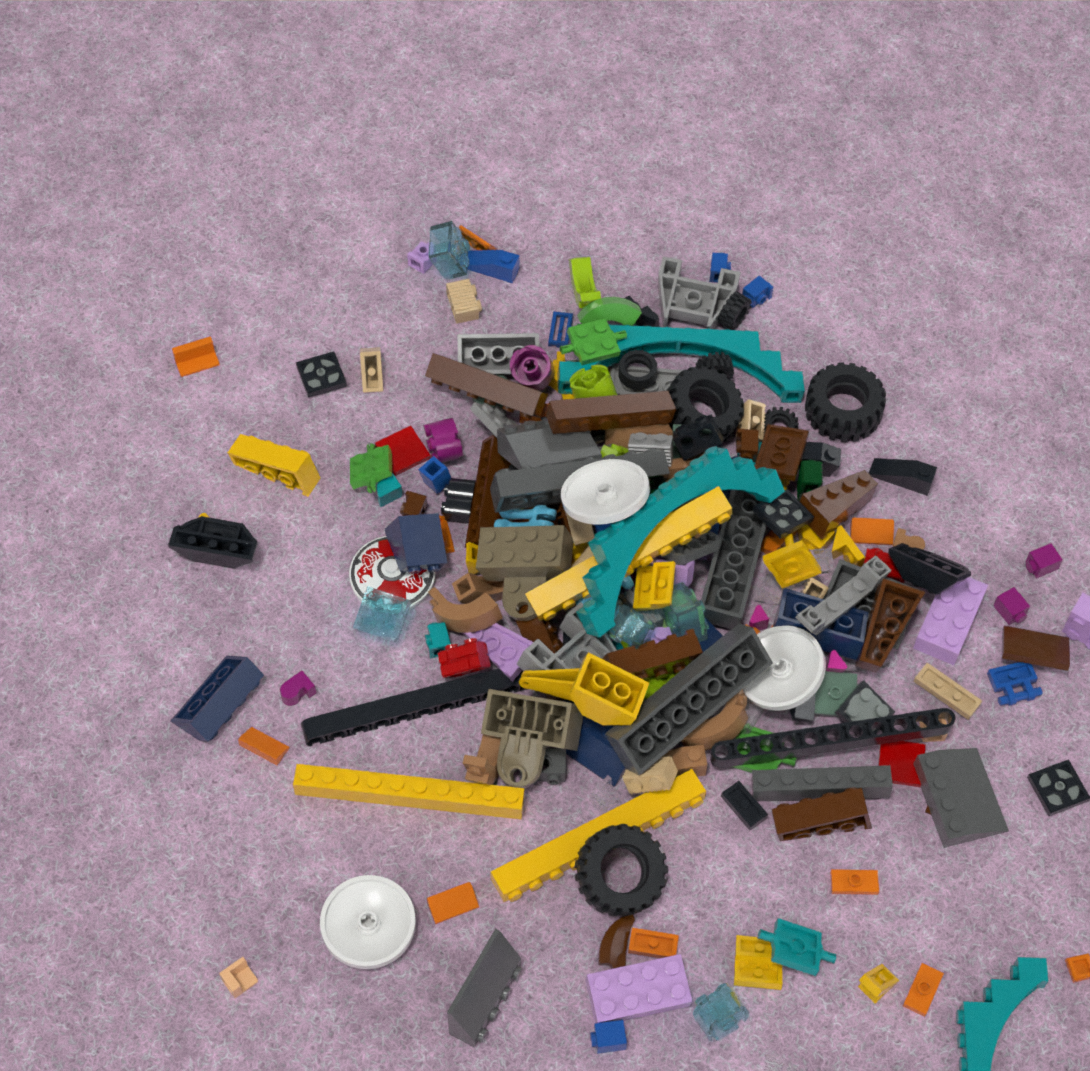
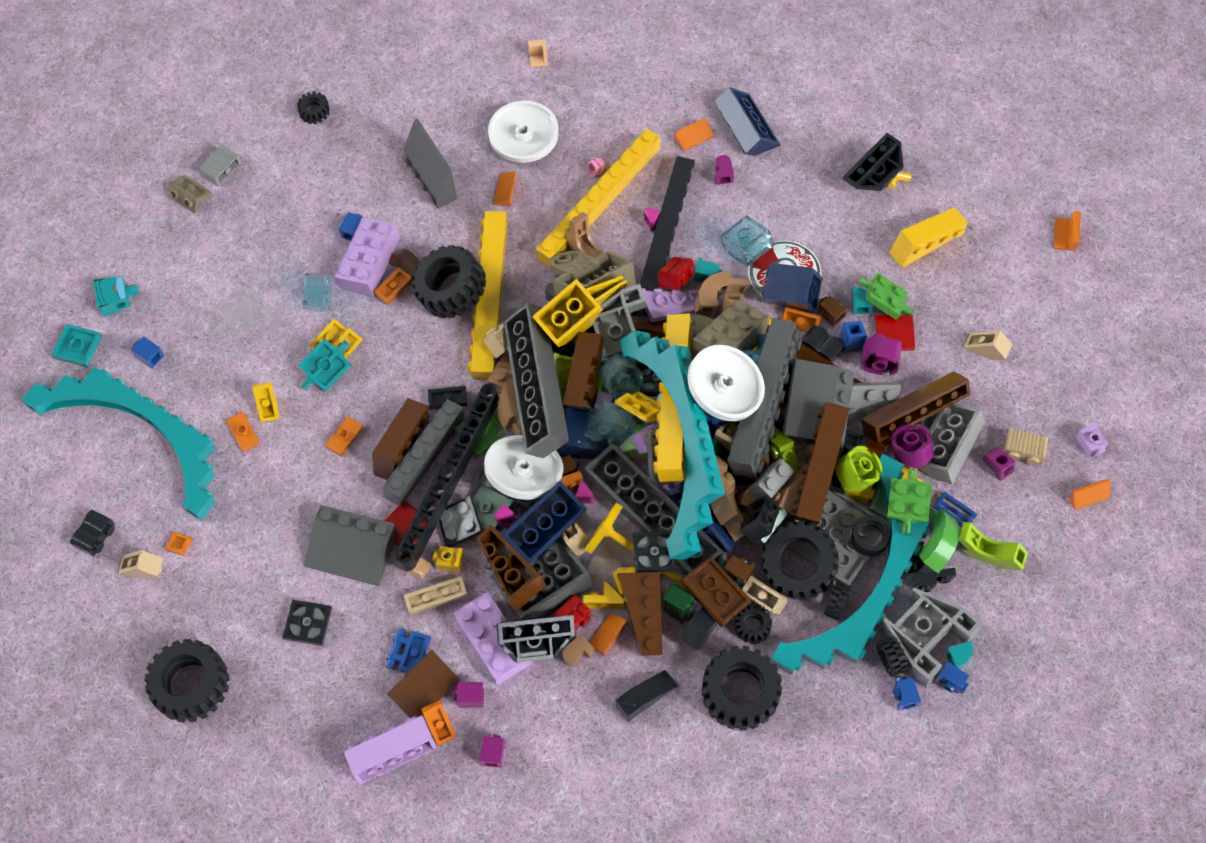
camera: 125 degrees right, 5 degrees up
(321, 374) = (1003, 309): black piece -> none
(366, 820) = (596, 166): none -> bright pink plate
(404, 725) = (651, 218): none -> dark pink slope
(448, 250) = (1082, 454): clear light blue brick -> none
(492, 313) = (999, 462): none -> magenta leg
(495, 264) = (1056, 490): blue slope -> none
(695, 269) = (960, 654): none -> teal brick
(845, 598) = (545, 535): light grey slope -> none
(900, 692) = (451, 564): none -> yellow brick
(1054, 618) = (438, 722): none -> orange slope

